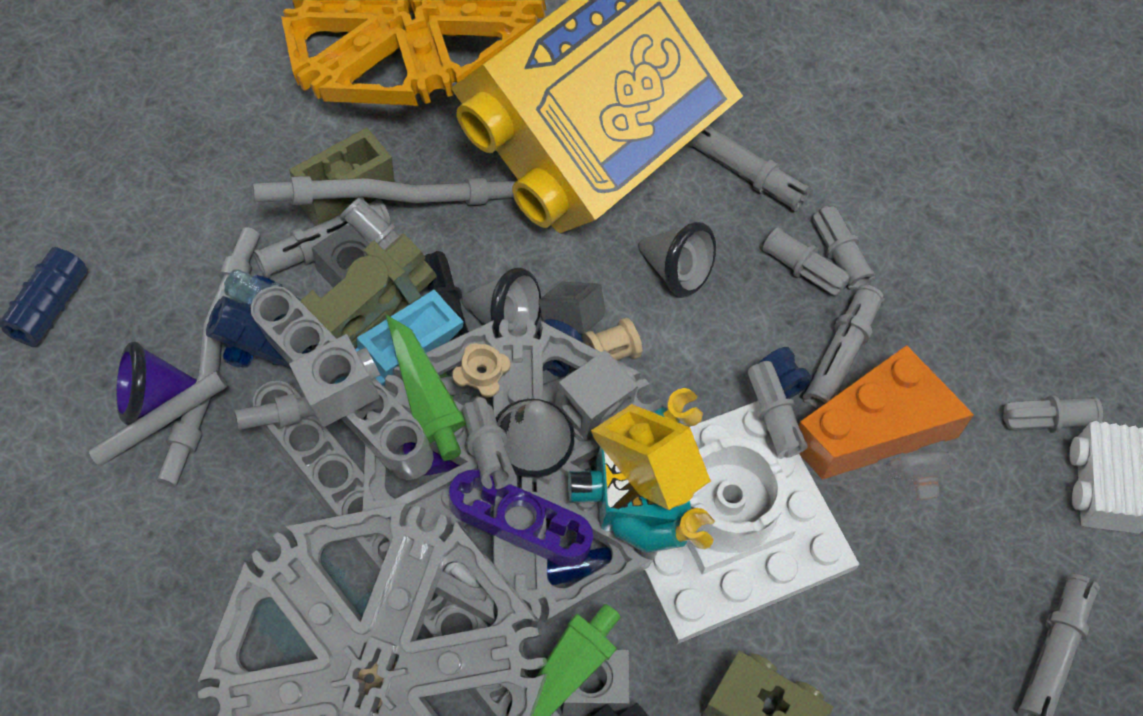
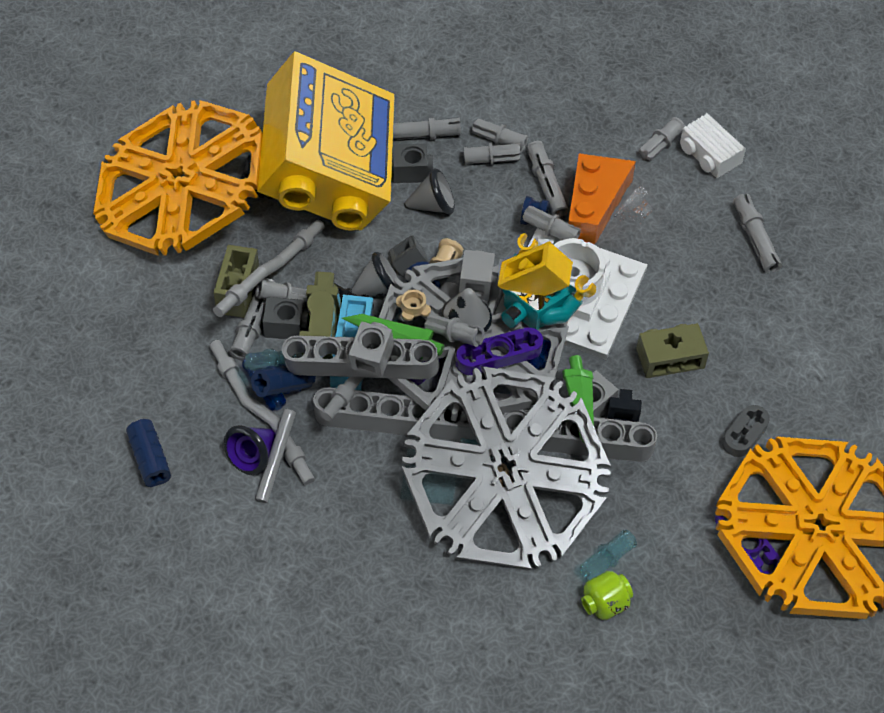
camera: 40 degrees left, 5 degrees down
(693, 183) = (411, 163): none -> dark grey brick

